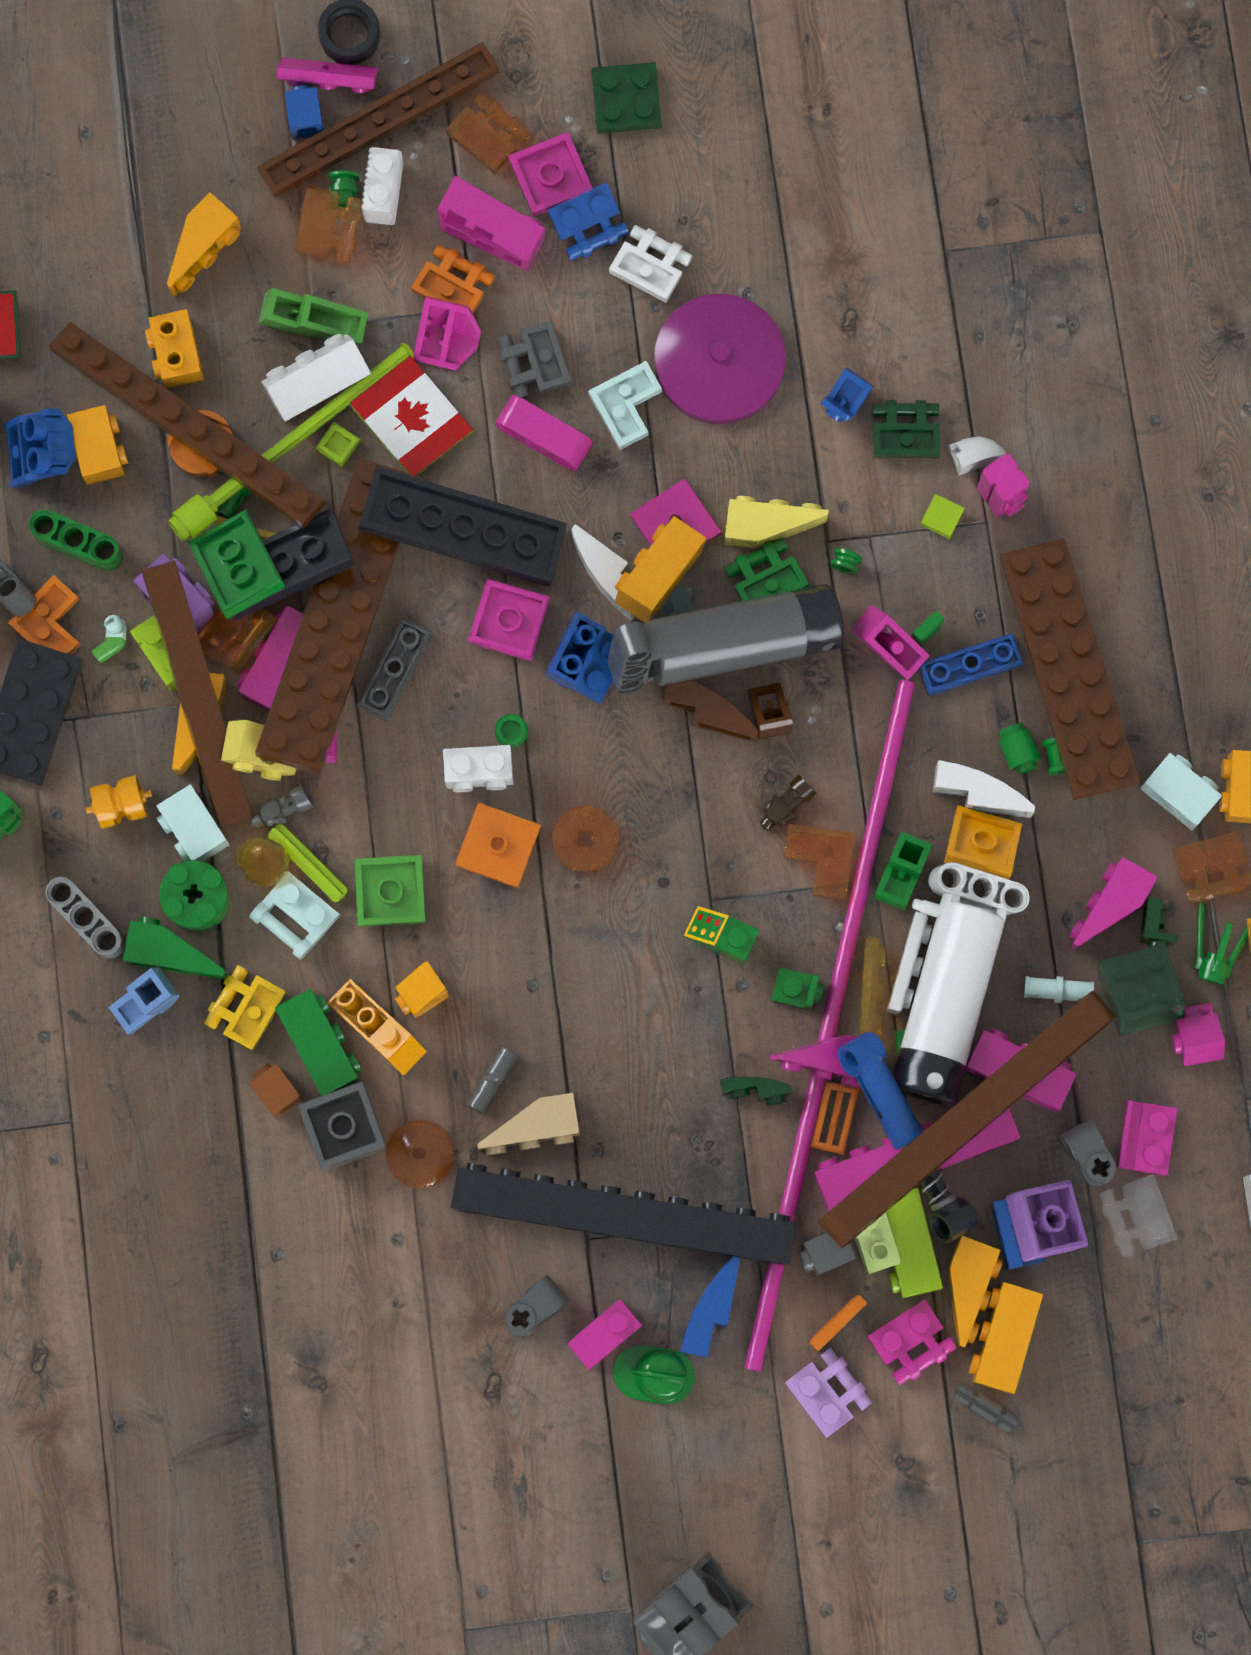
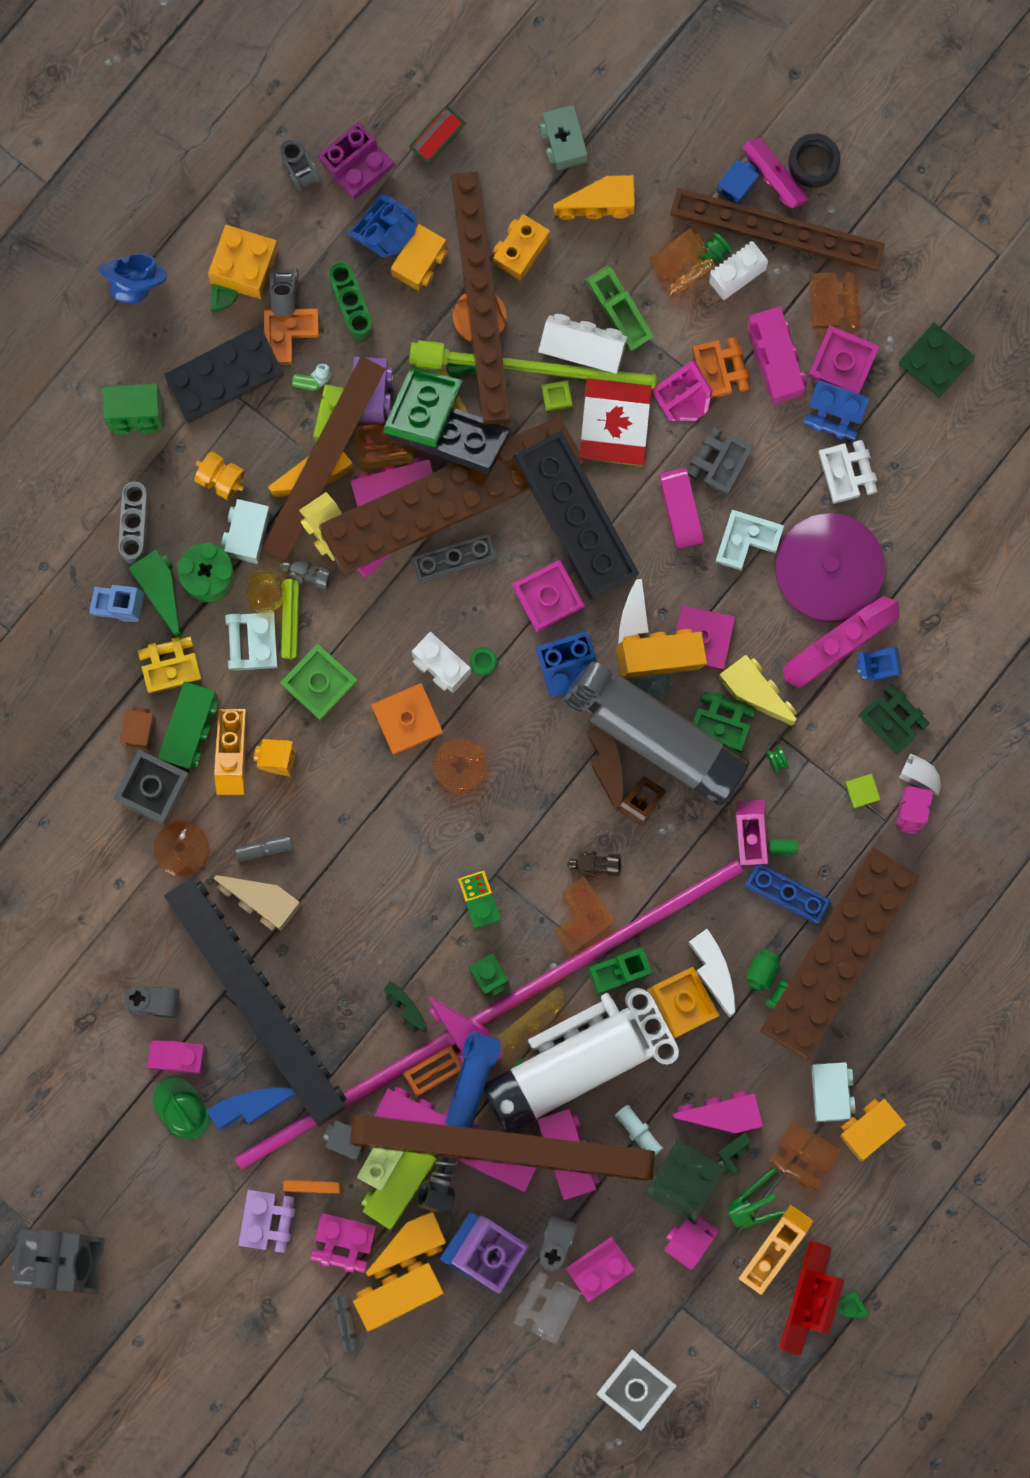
camera: 50 degrees right, 0 degrees up
(107, 206) = (565, 123): none -> sand green brick
(795, 410) = (841, 642): none -> dark pink brick

